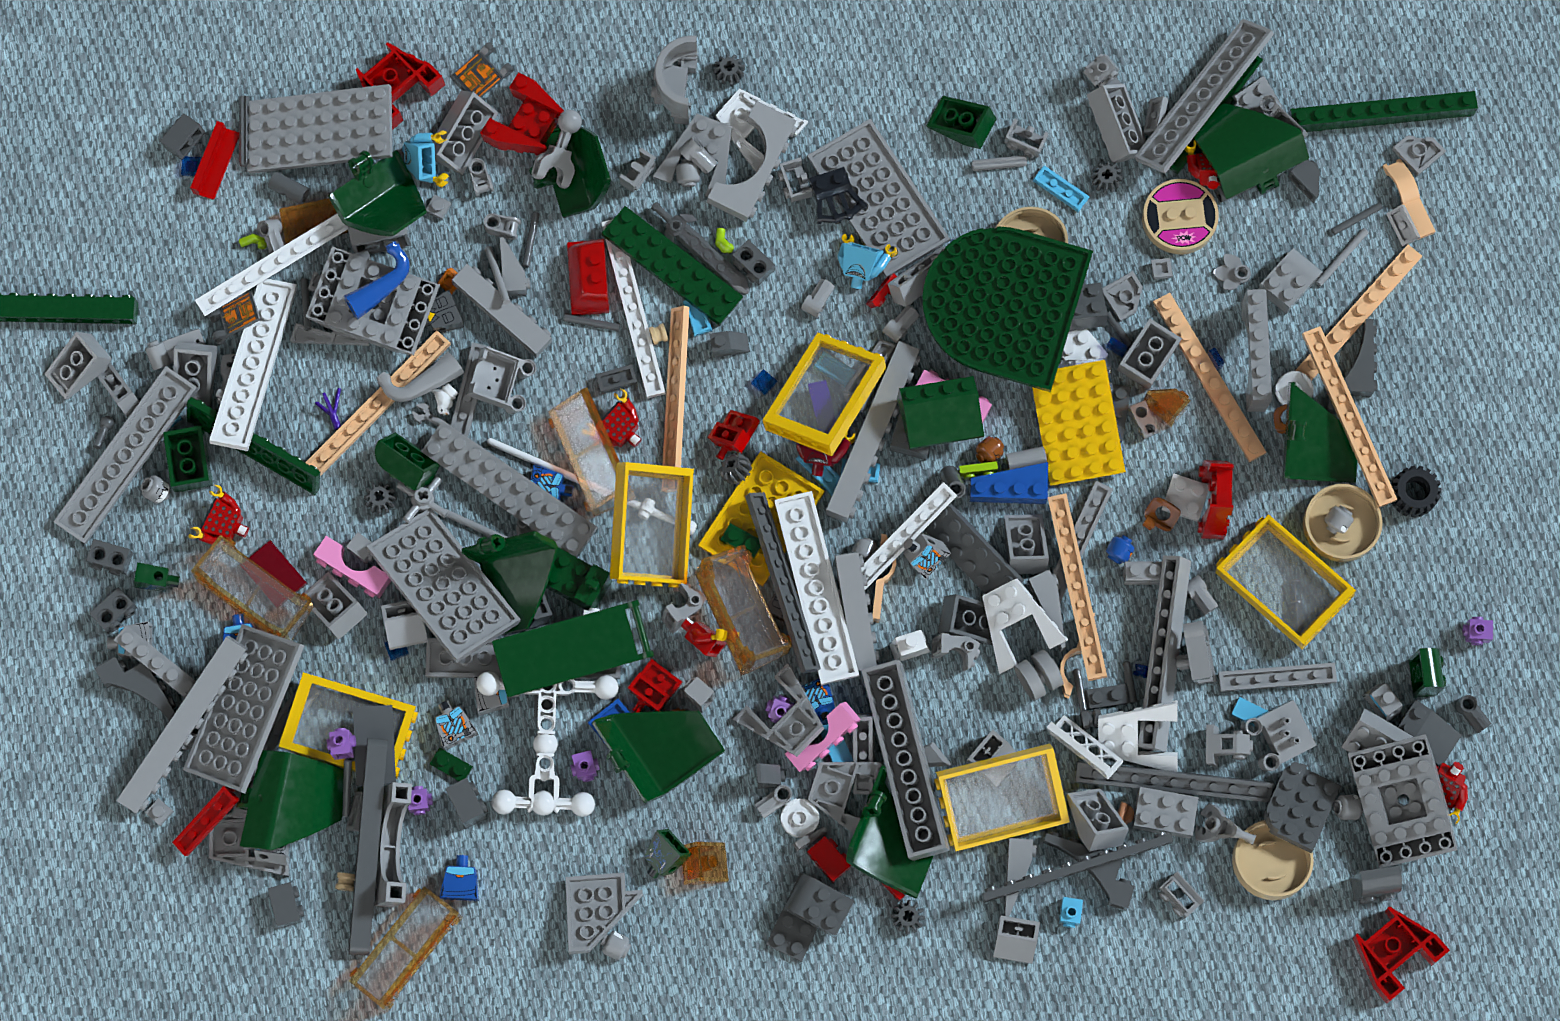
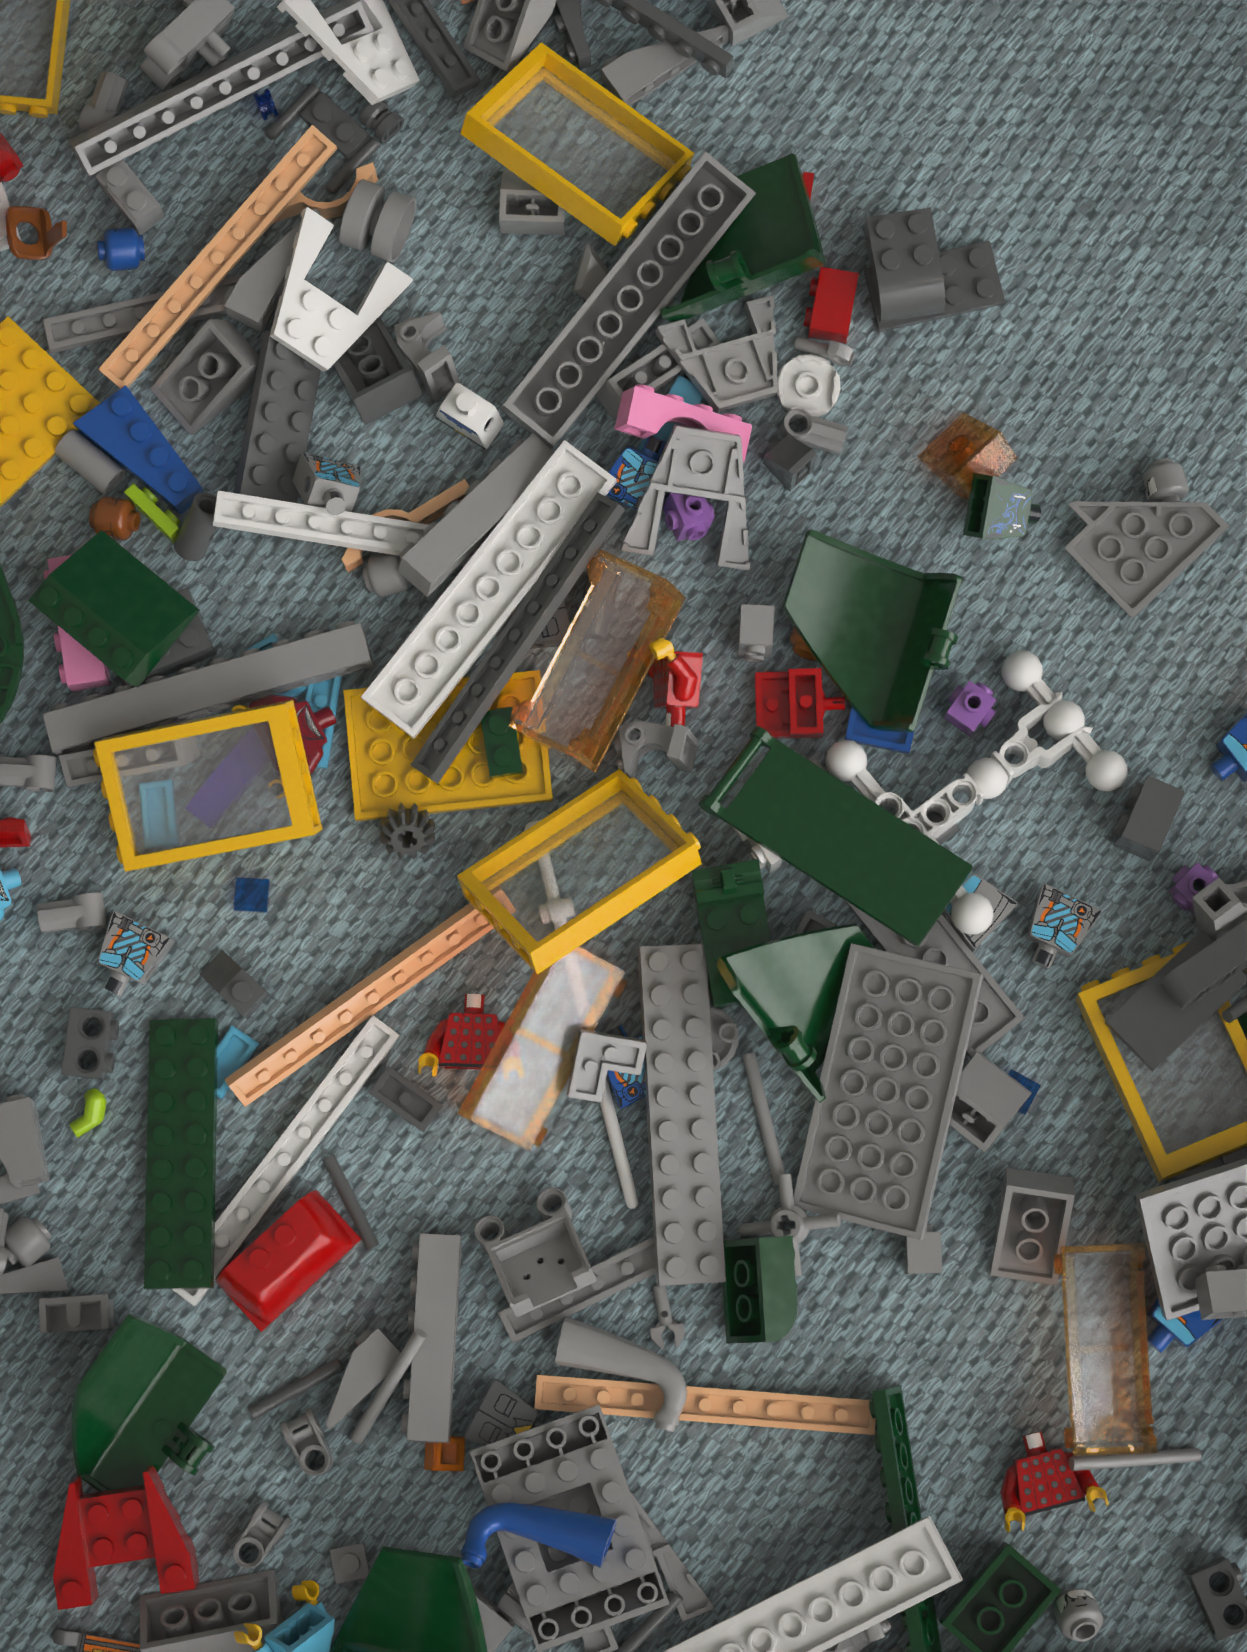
camera: 125 degrees left, 5 degrees up
(146, 575) = (1205, 1519): dark green torso -> none
(189, 579) = (1129, 1460): none -> light grey bar
(277, 565) = (1042, 1349): dark red tile -> none
(331, 412) = (768, 1460): dark purple plant -> none
(331, 555) = (967, 1286): bright pink arch -> none
(341, 743) = (1228, 1038): medium lavender brick -> none
(388, 500) = (843, 1294): dark grey gear -> none
(444, 398) = (622, 1315): white animal -> none
(451, 765) = (1111, 887): dark green plate -> none
(558, 156) = (143, 1443): light grey piece -> none
(563, 470) = (596, 1055): none -> light grey plate
(658, 334) = (296, 1092): tan wheel -> none
(698, 246) = (124, 1136): sword -> none
(733, 432) = (357, 873): red plate -> none
(780, 310) = (131, 952): none -> torso
(914, 920) = (832, 161): dark grey gear -> none
(1082, 750) = (437, 95): white fence -> none

